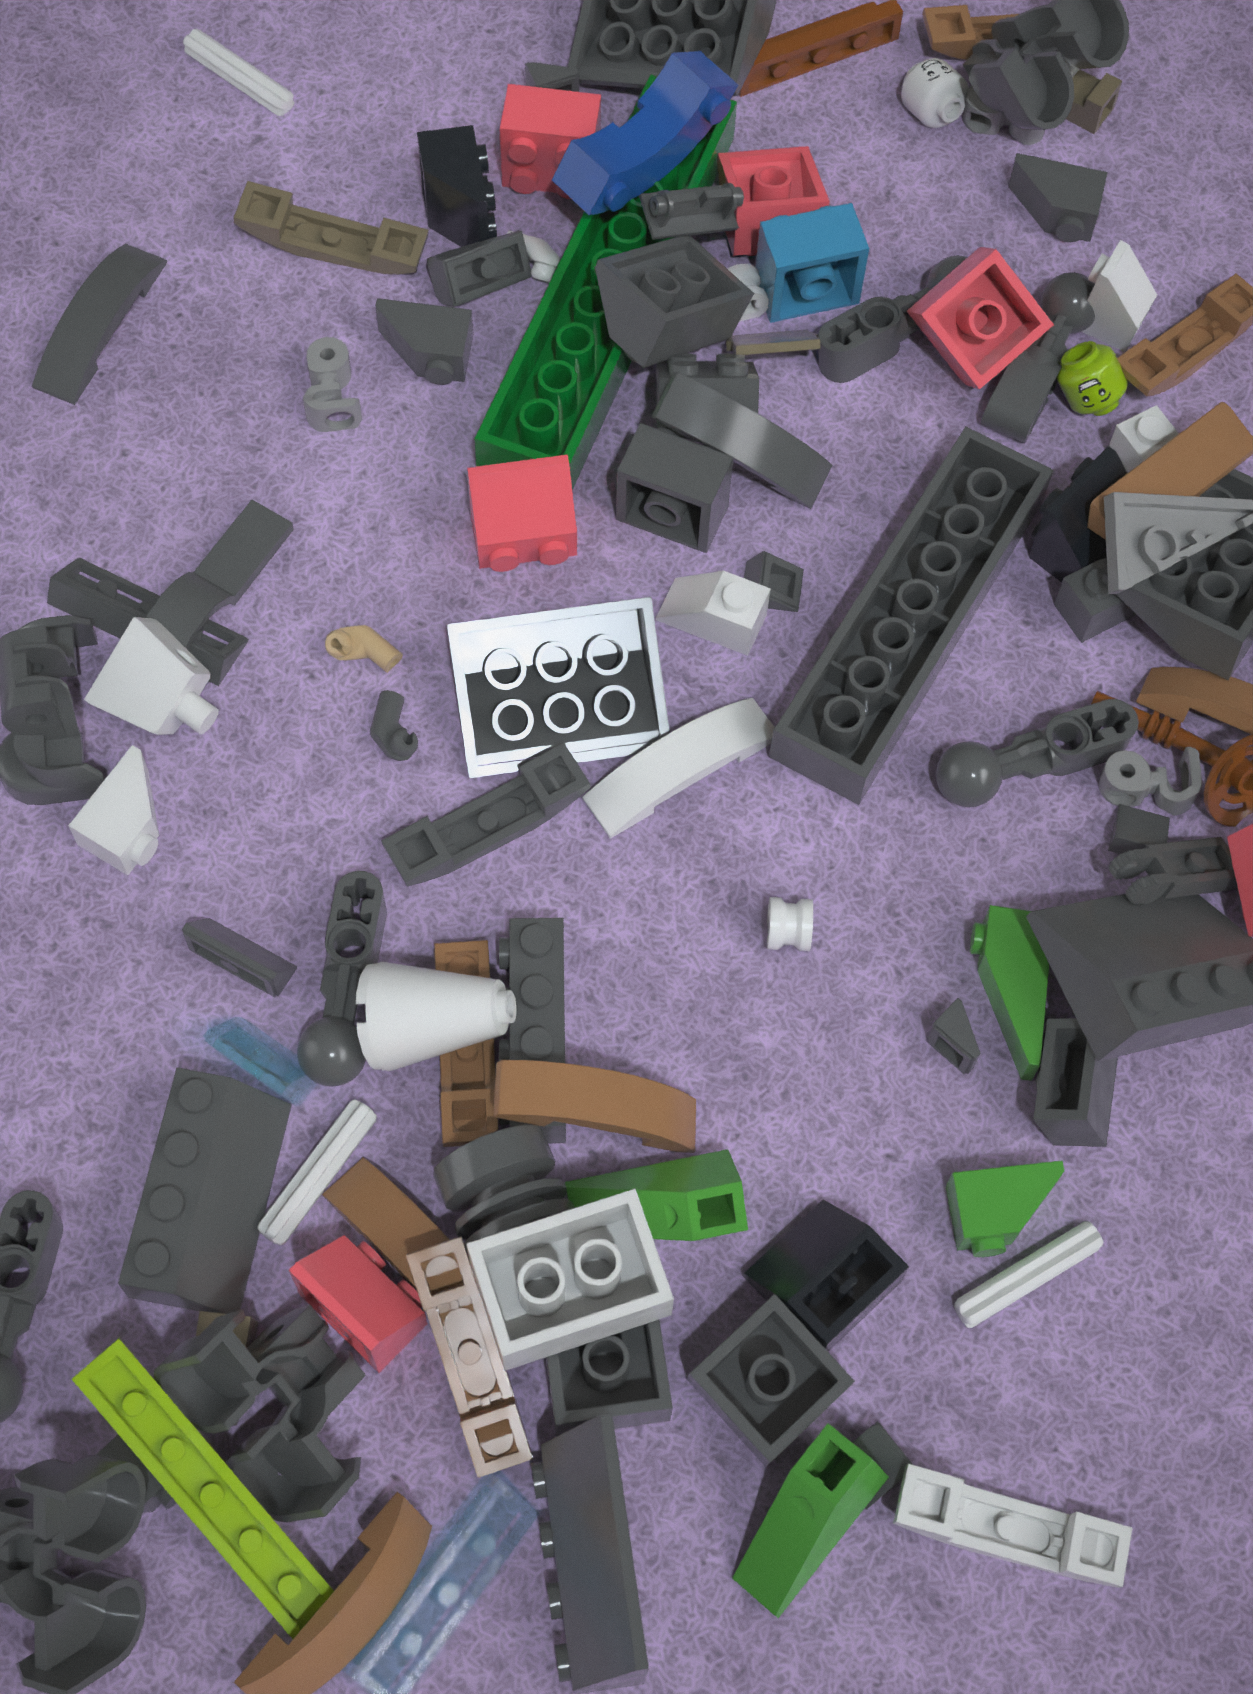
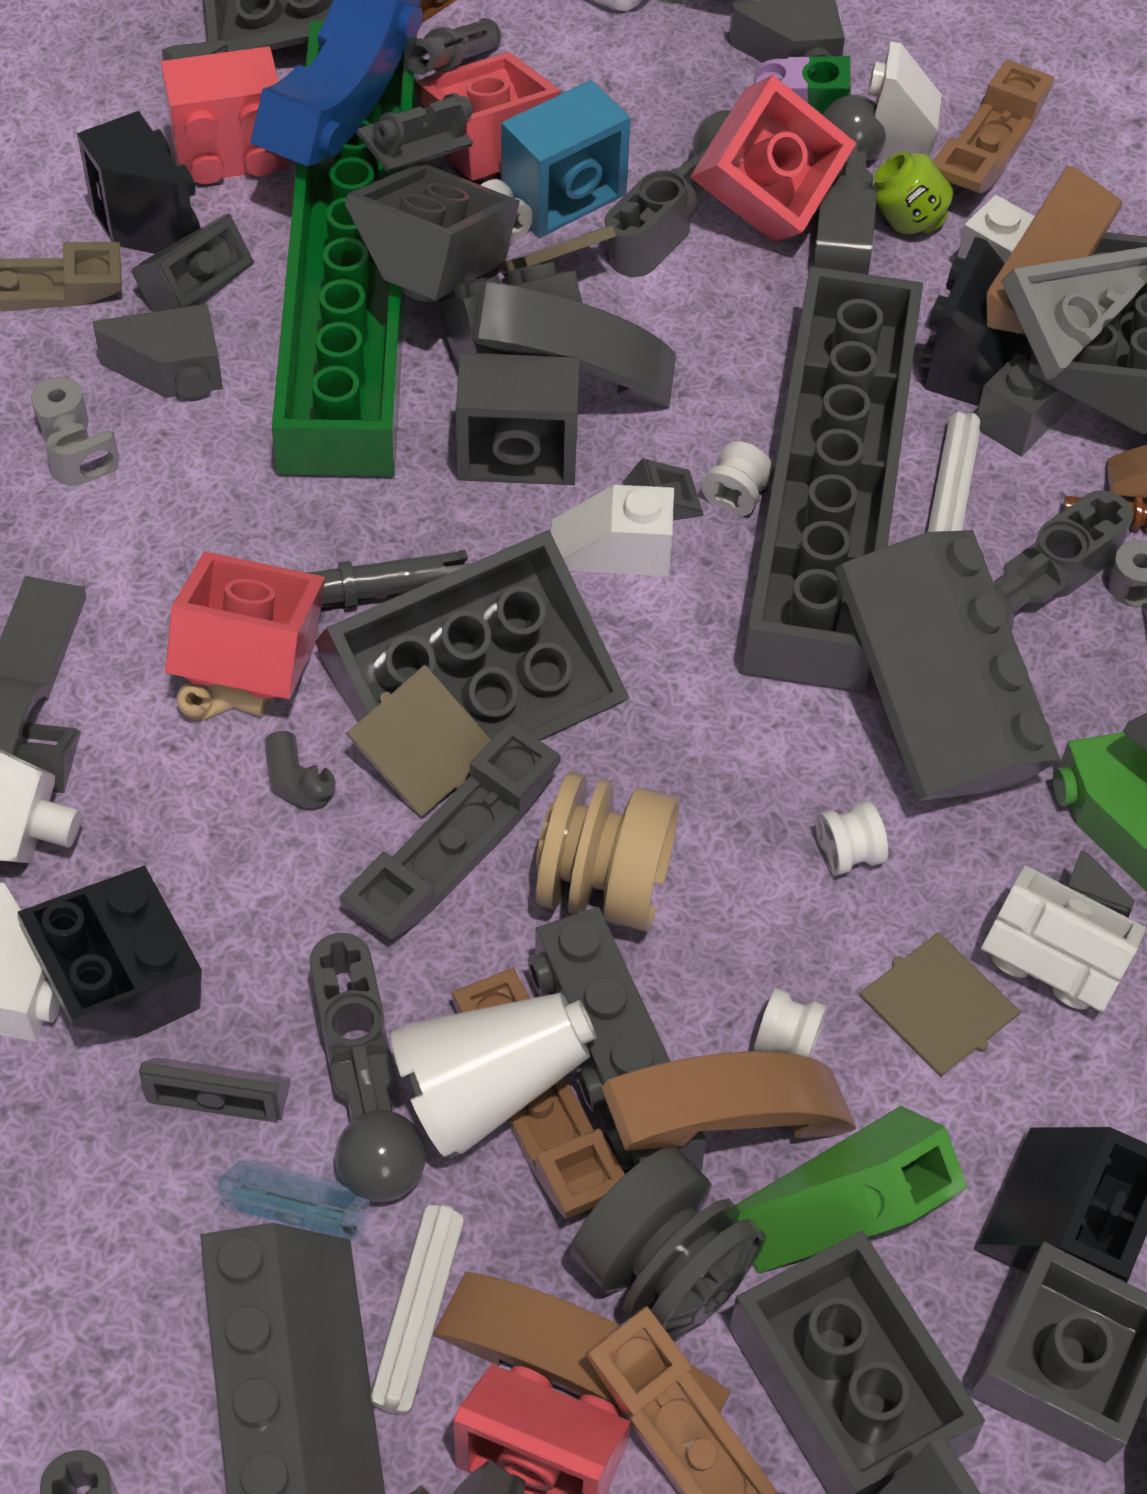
camera: 20 degrees left, 10 degrees down
(197, 833) = (115, 955): none -> black slope
(393, 598) = (244, 625): none -> coral brick
(491, 734) = (420, 740): none -> dark tan piece
(512, 588) = (383, 580): none -> dark grey pin
(523, 512) = (356, 492): coral slope -> none
(543, 255) = (263, 239): white arm -> none
(570, 1279) = (806, 1304): white brick -> none
(582, 869) = (606, 850): none -> tan wheel
(674, 1058) = (790, 1025): none -> white wheel
(677, 763) = (648, 704): white slope -> none
(734, 134) = (439, 47): none -> dark grey pin
(802, 1078) = (939, 1004): none -> dark tan piece
(833, 591) = (738, 478): none -> white wheel
(912, 1063) = (1062, 940): none -> white brick
(916, 811) = (947, 666): none -> dark grey slope
(1011, 650) = (955, 473): none -> white axle
(1046, 248) = (812, 78): none -> green leg

